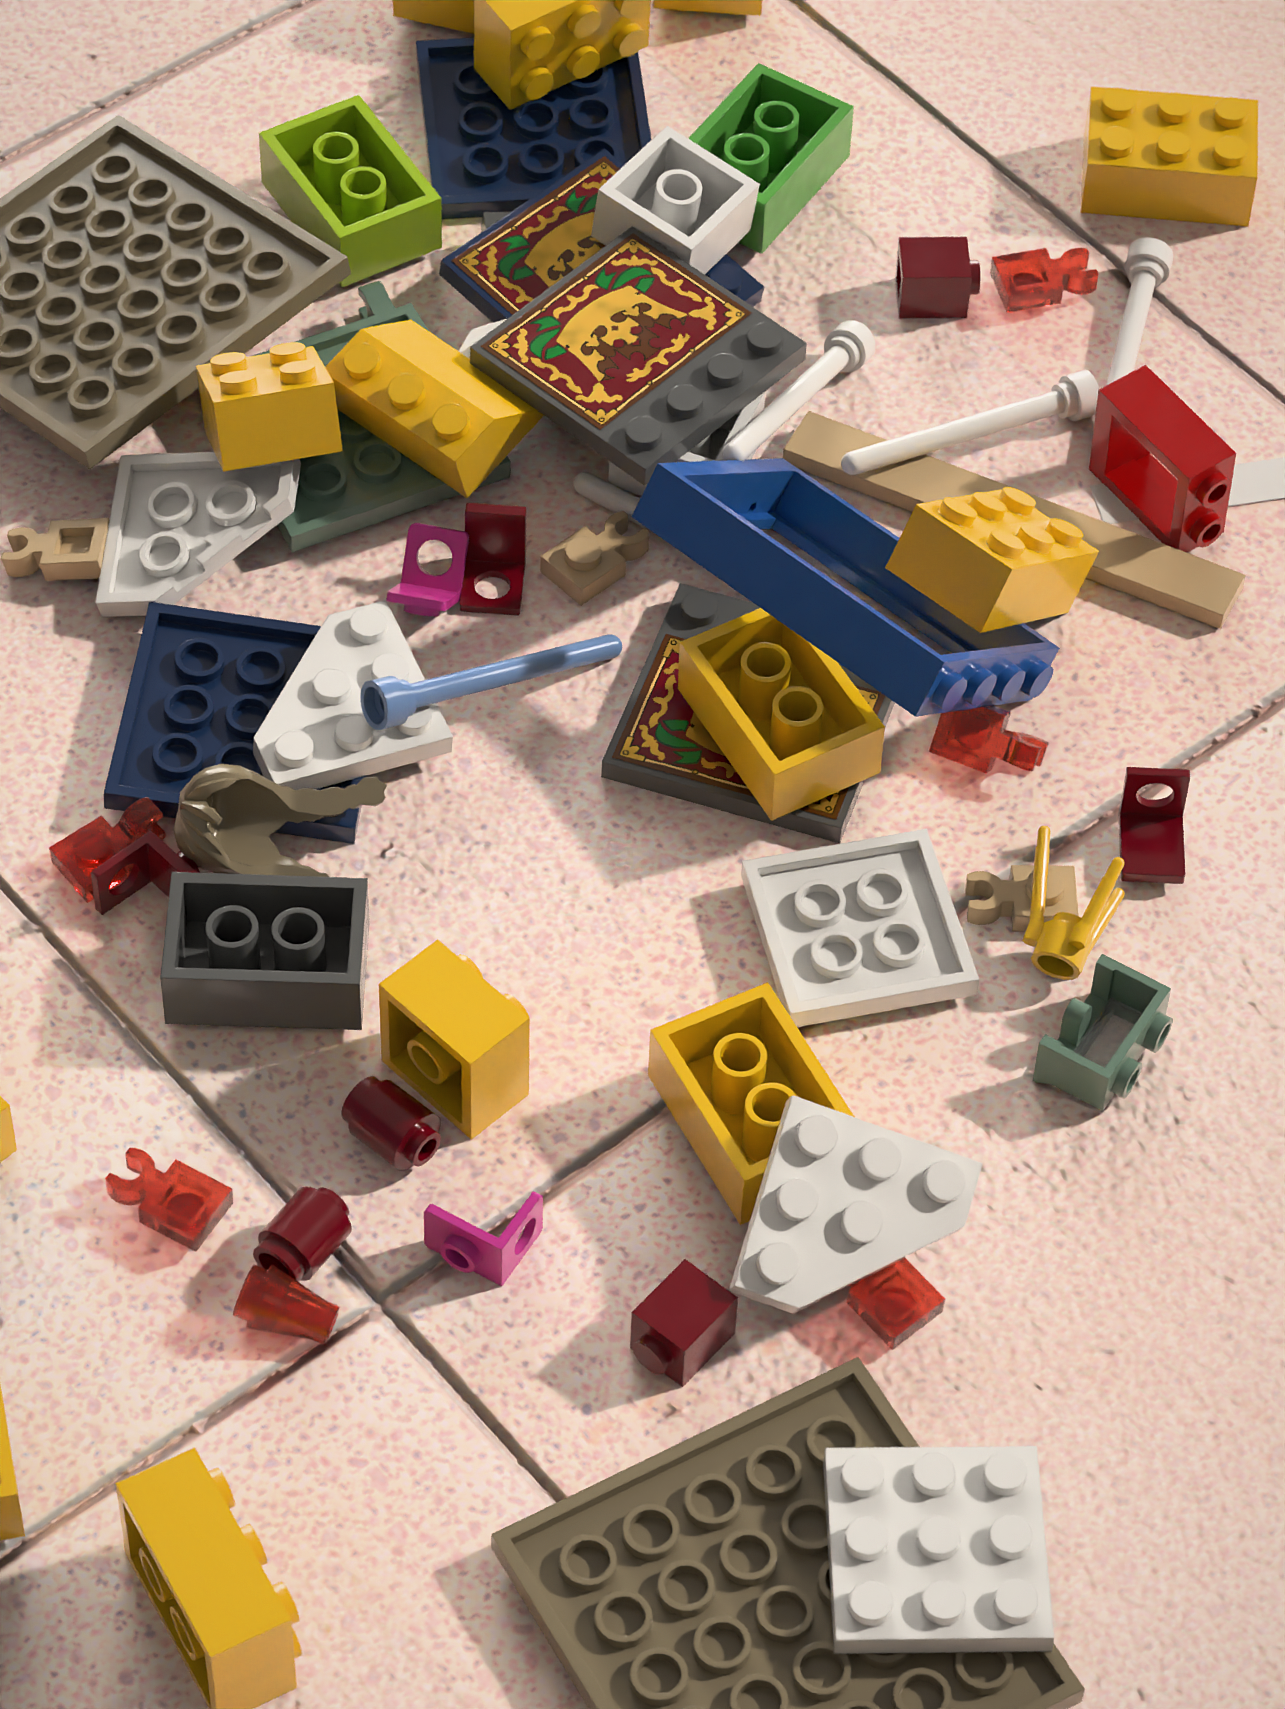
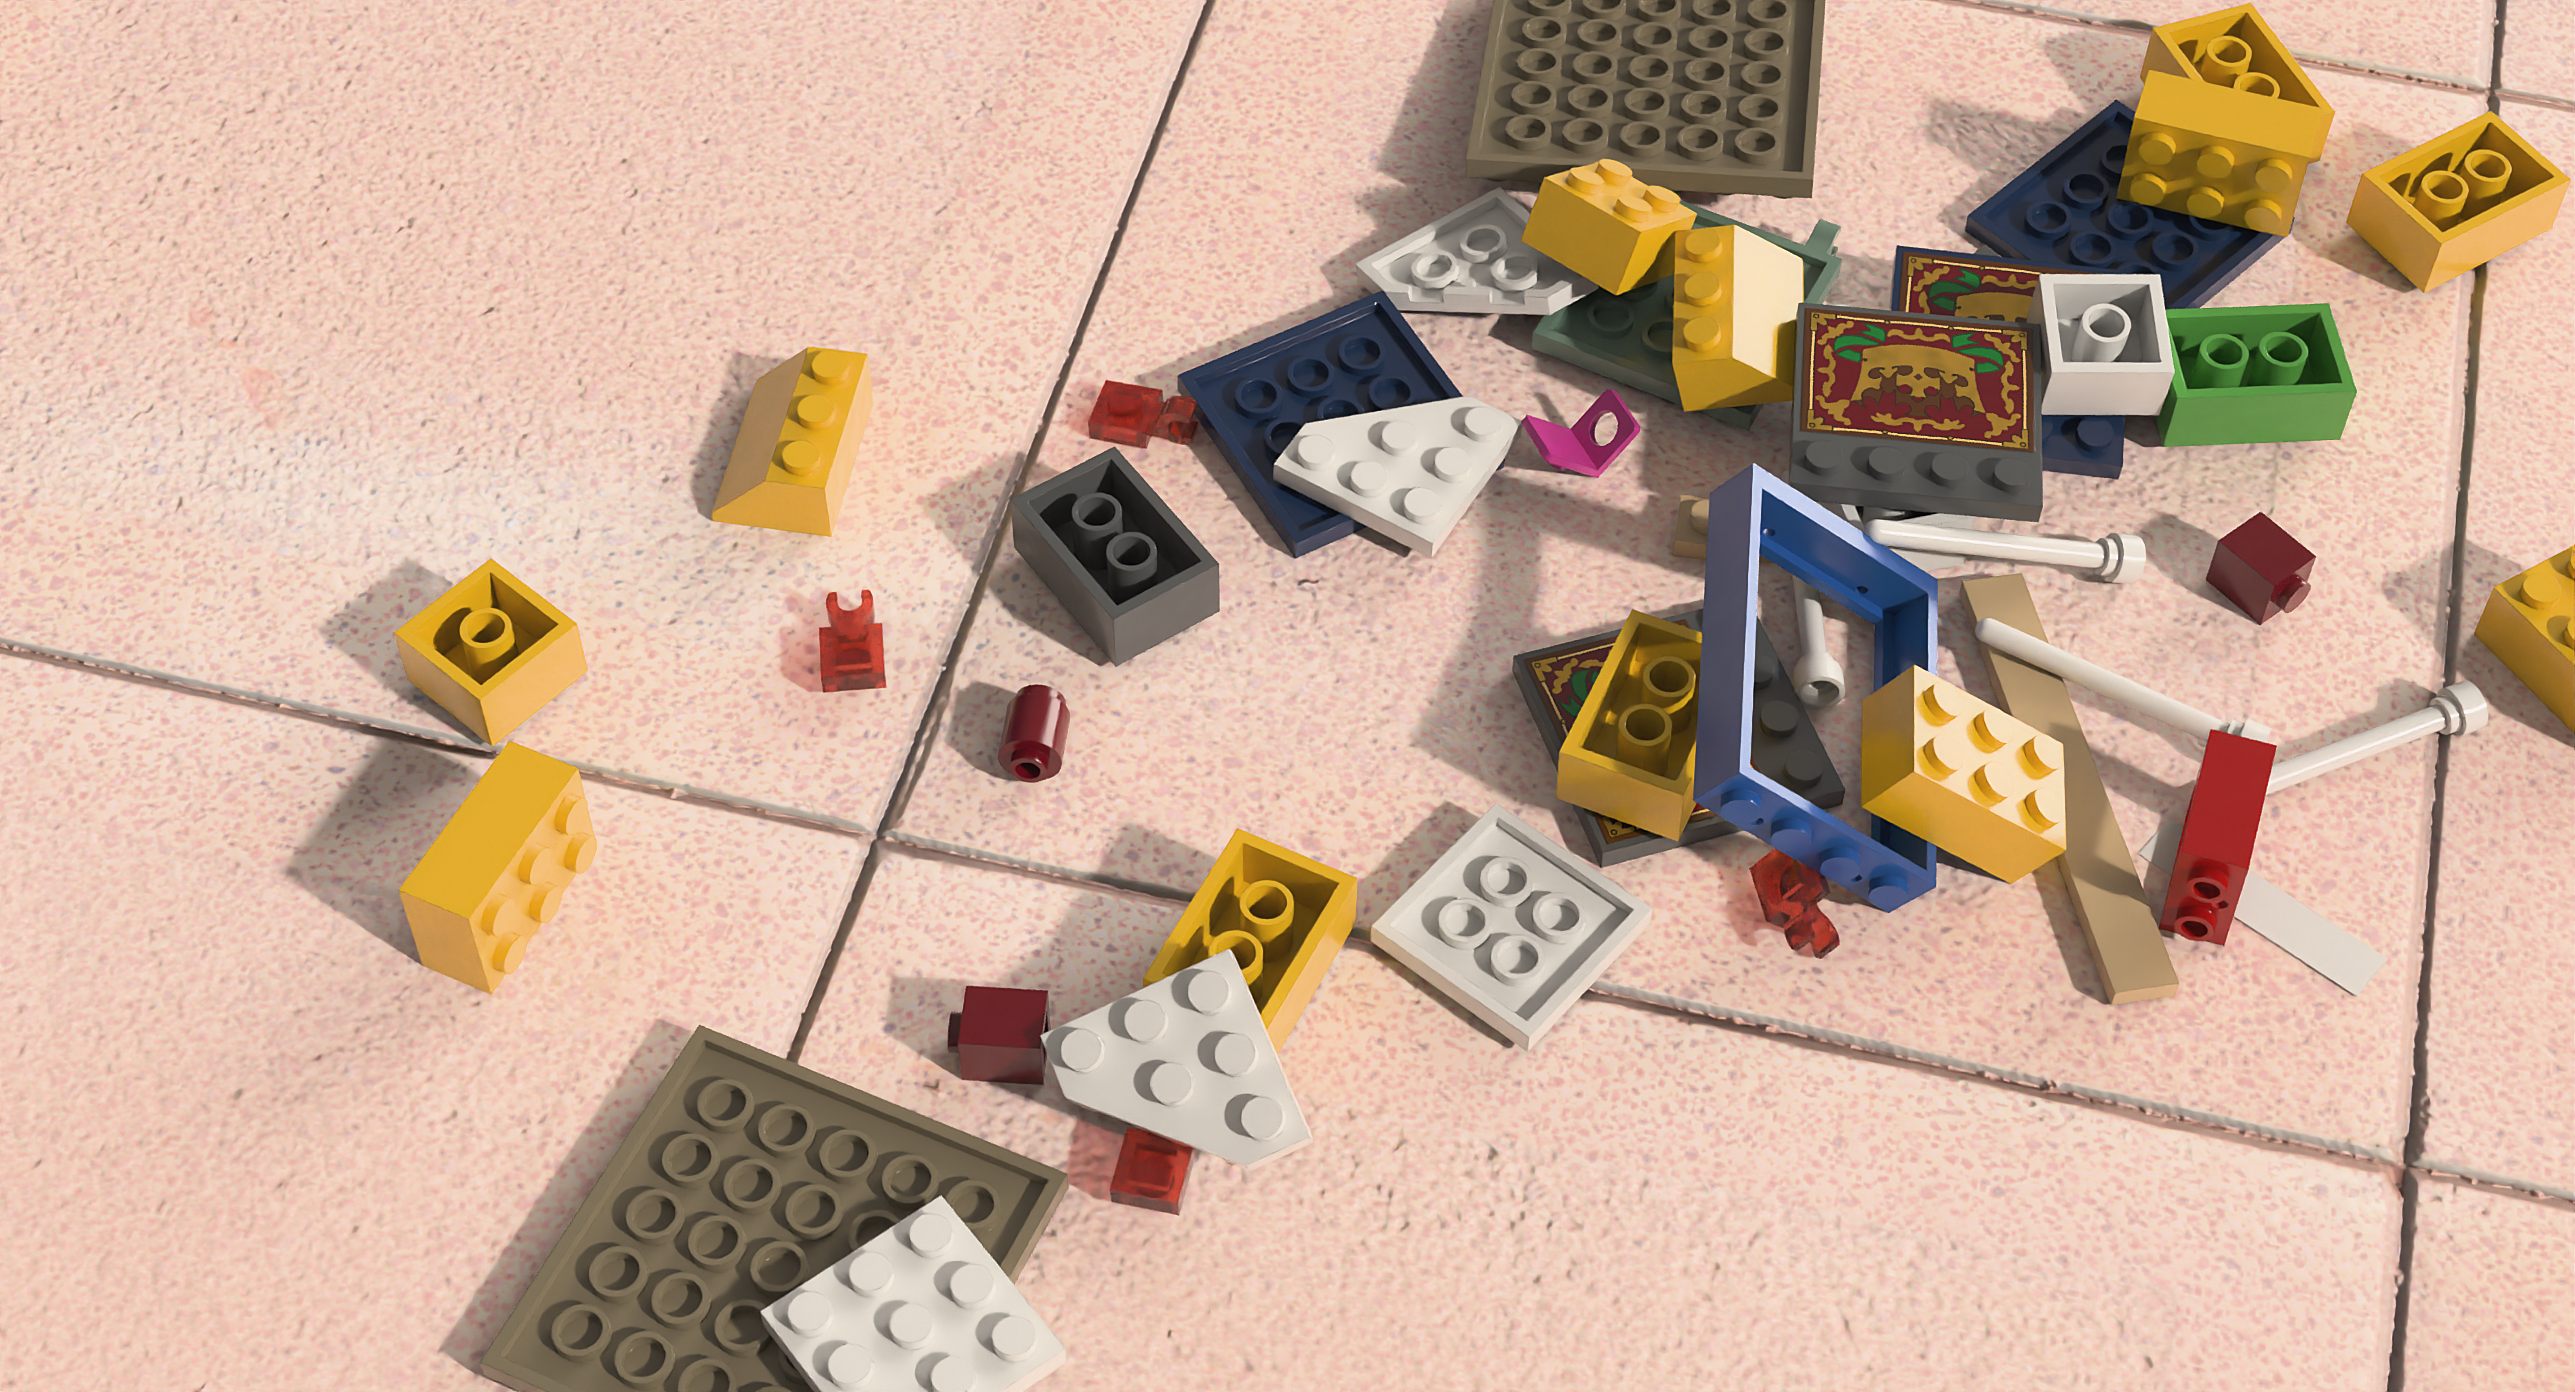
camera: 55 degrees right, 0 degrees up
(65, 553) = (1385, 217): tan plate -> none
(151, 862) = (1143, 447): dark red bracket -> none
(233, 811) = (1207, 459): dark tan hair -> none
(284, 1306) = (809, 768): clear red cone -> none
(304, 1233) = (881, 742): dark red brick -> none
(351, 187) = (1910, 153): lime brick -> none
(391, 701) = (1412, 478): medium blue piece -> none
(455, 1038) = (1131, 716): yellow brick -> none
(478, 1251) = (971, 869): dark pink bracket -> none
(496, 551) = (1656, 465): dark red bracket -> none
(1013, 896) = (1664, 1035): tan plate -> none
(1036, 280) = (2349, 638): clear red plate -> none
(1067, 939) = (1627, 1076): yellow plant -> none
(1106, 1035) = (1559, 1169): sand green window -> none
(1153, 829) = (1818, 1075): dark red bracket -> none

